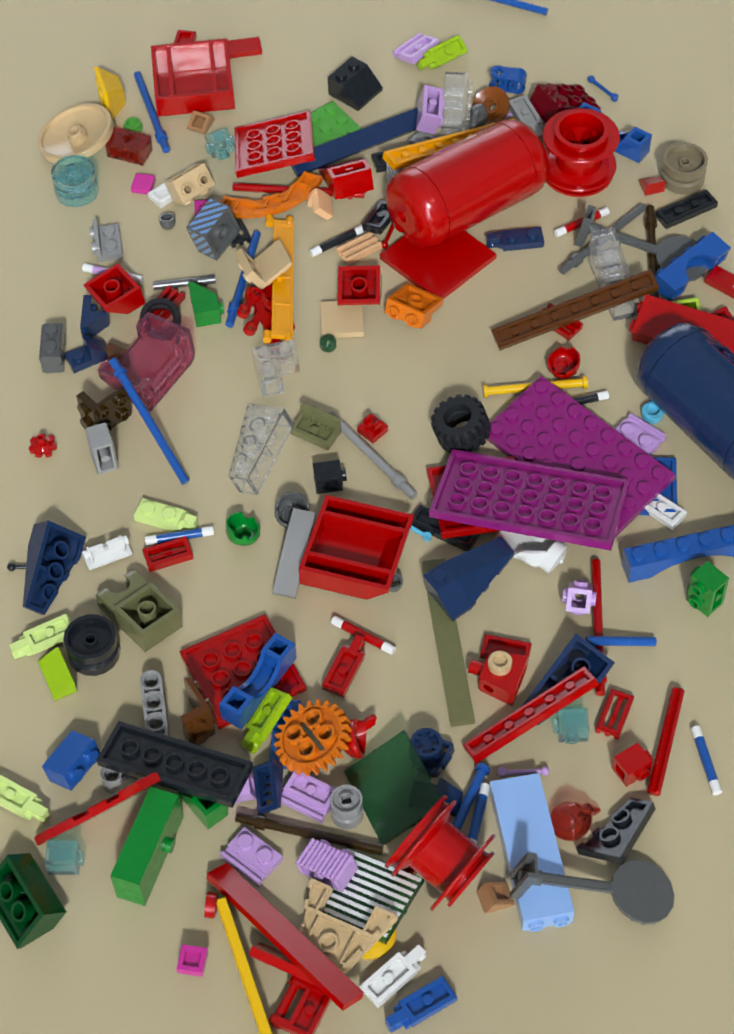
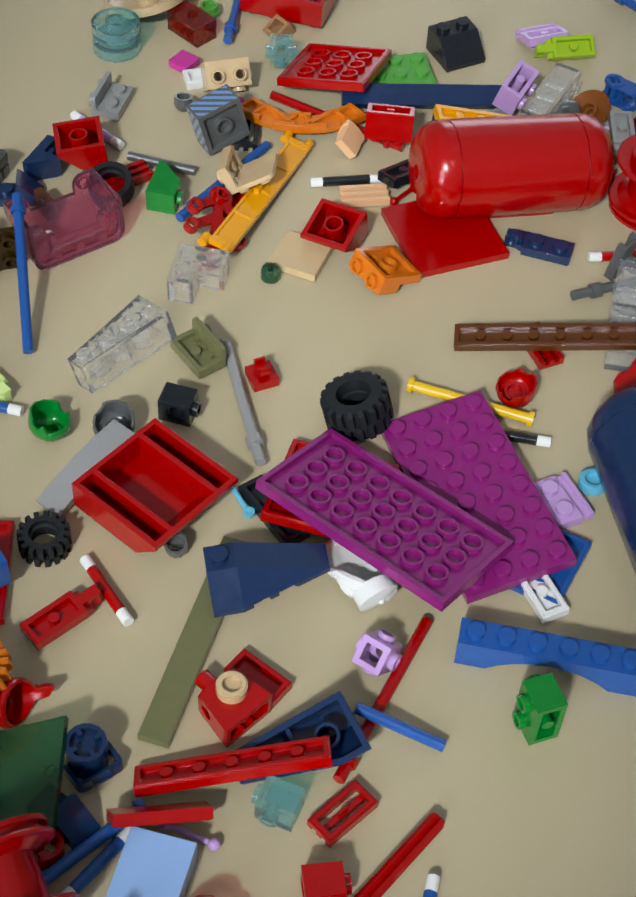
camera: 20 degrees right, 5 degrees down
(296, 606) = (44, 552): none -> black tyre
(501, 766) = (159, 814): none -> red tile

